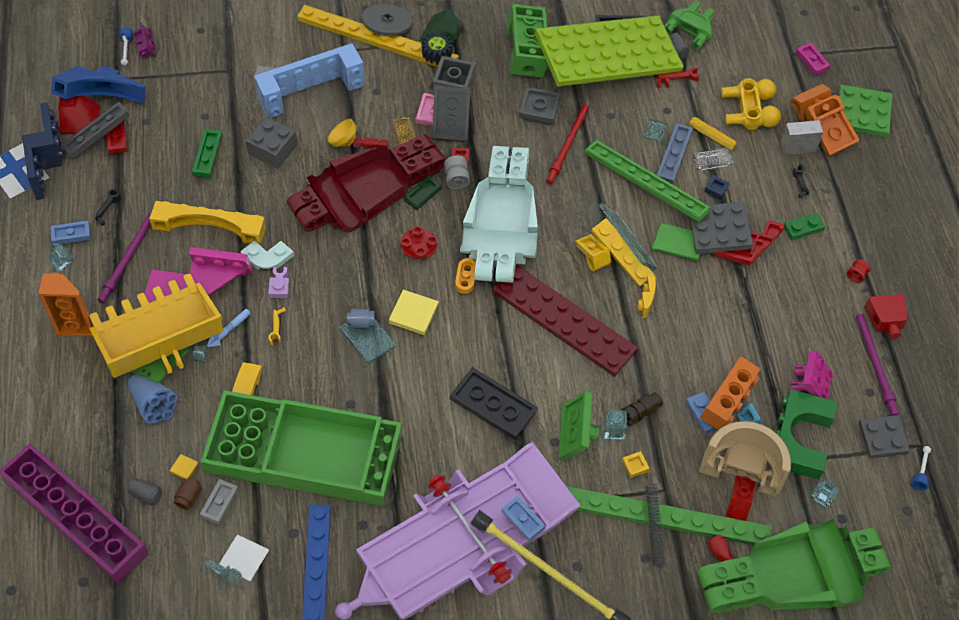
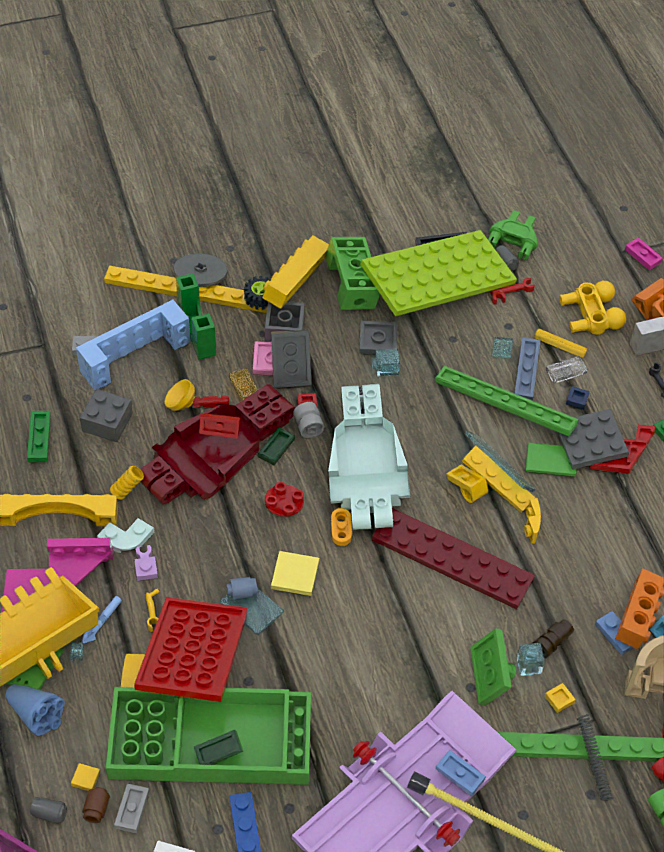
camera: 10 degrees left, 5 degrees down
(276, 206) = (126, 482): none -> yellow piece
(301, 367) = (192, 649): none -> red plate
(307, 461) = (218, 748): none -> dark green tile
(370, 166) = (219, 425): none -> red plate
(372, 65) = (201, 326): none -> green arch
(445, 23) = (259, 265): dark green slope -> none
(473, 32) = (295, 271): none -> yellow brick
(493, 403) = (399, 656): black plate -> none
(542, 129) = (386, 362): none -> clear light blue brick
(556, 167) = (409, 400): red bar -> none

